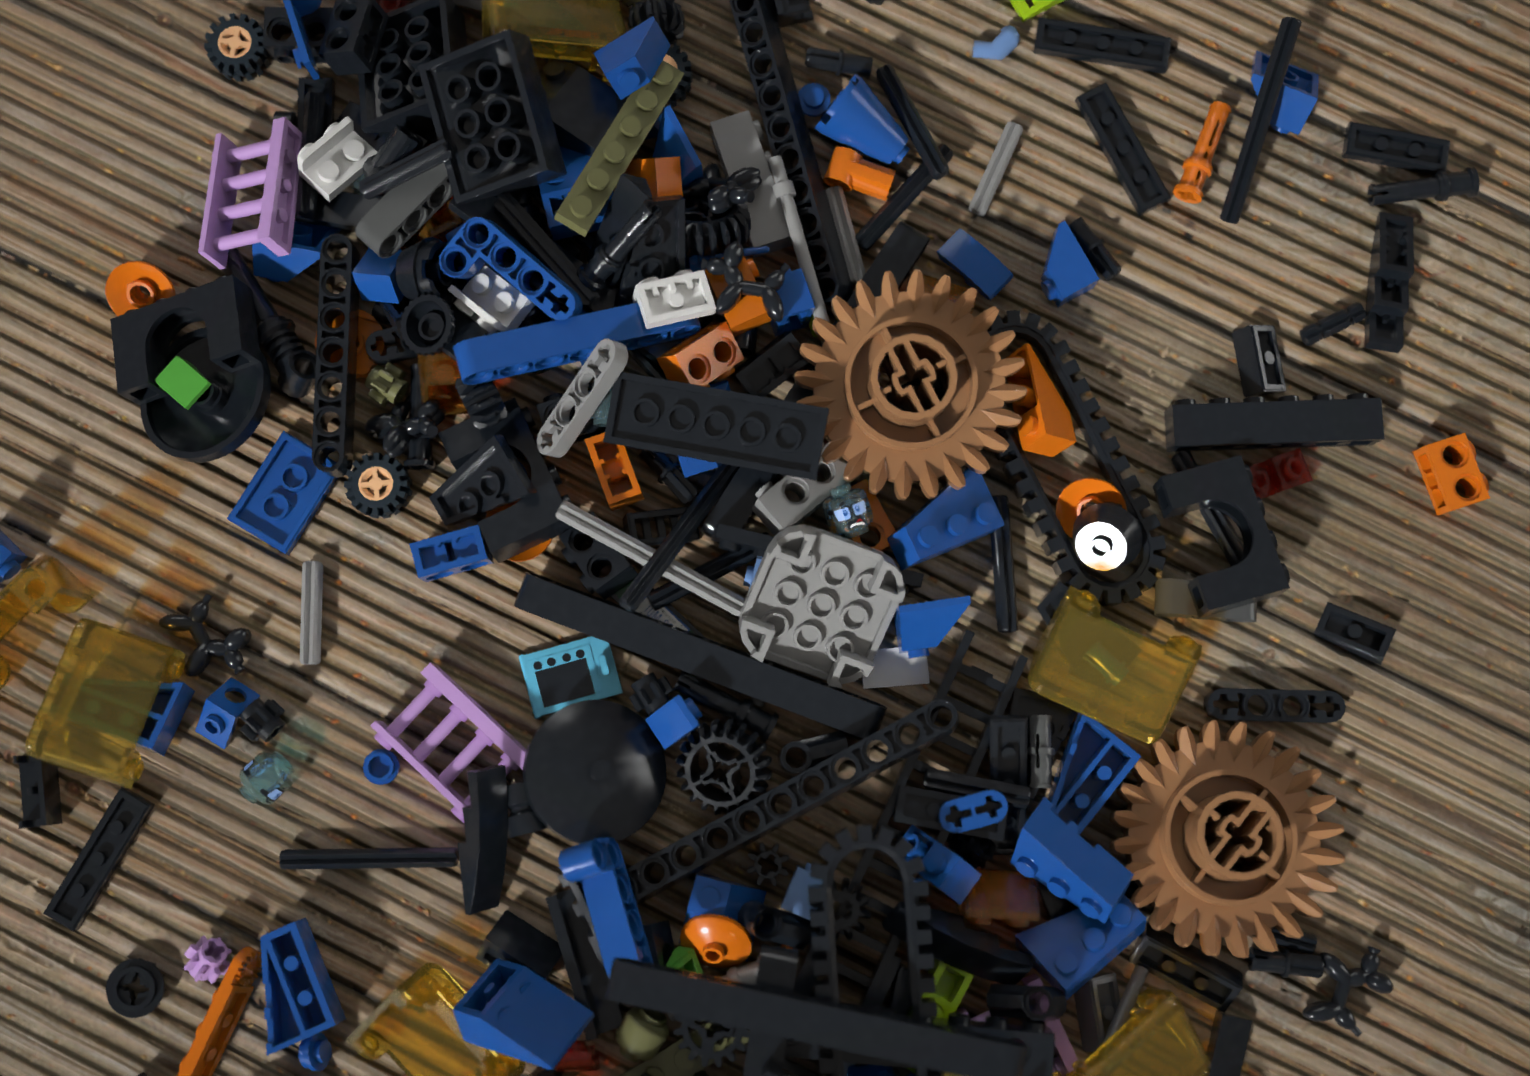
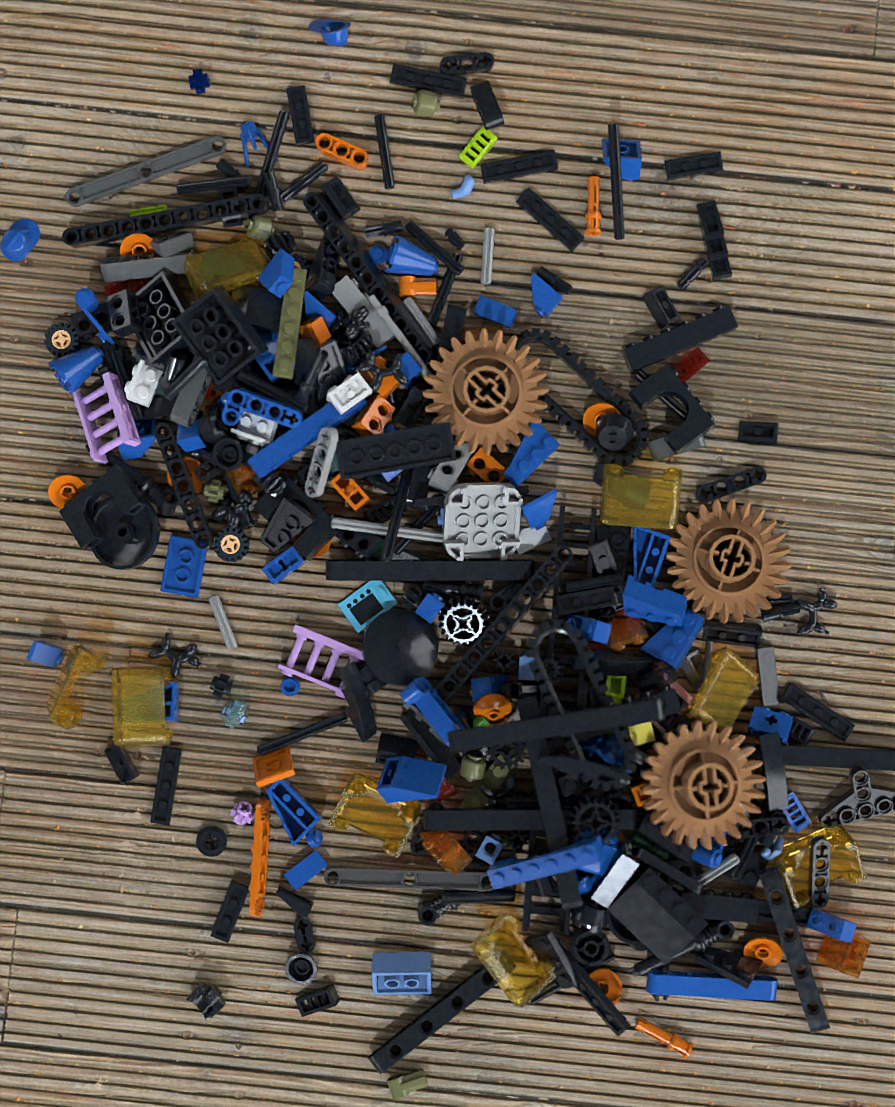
camera: 20 degrees left, 5 degrees up
(183, 382) = (111, 529): bright green slope -> none
(221, 715) = (199, 690): blue bracket -> none
(241, 95) = (76, 367): none -> blue cone
(292, 898) = (273, 766): none -> orange plate
(711, 90) = (322, 273): none -> black slope
(848, 511) = (478, 468): clear light blue head -> none
(951, 121) = (455, 239): none -> black piece
(974, 820) = (599, 599): blue beam -> none
(1004, 570) = (568, 466): black axle -> none
(1040, 751) = (619, 553): dark grey pin -> none
(1045, 420) = (559, 379): orange slope -> none
(1439, 186) = (722, 178): black pin -> none
(1442, 477) = (775, 334): orange brick -> none

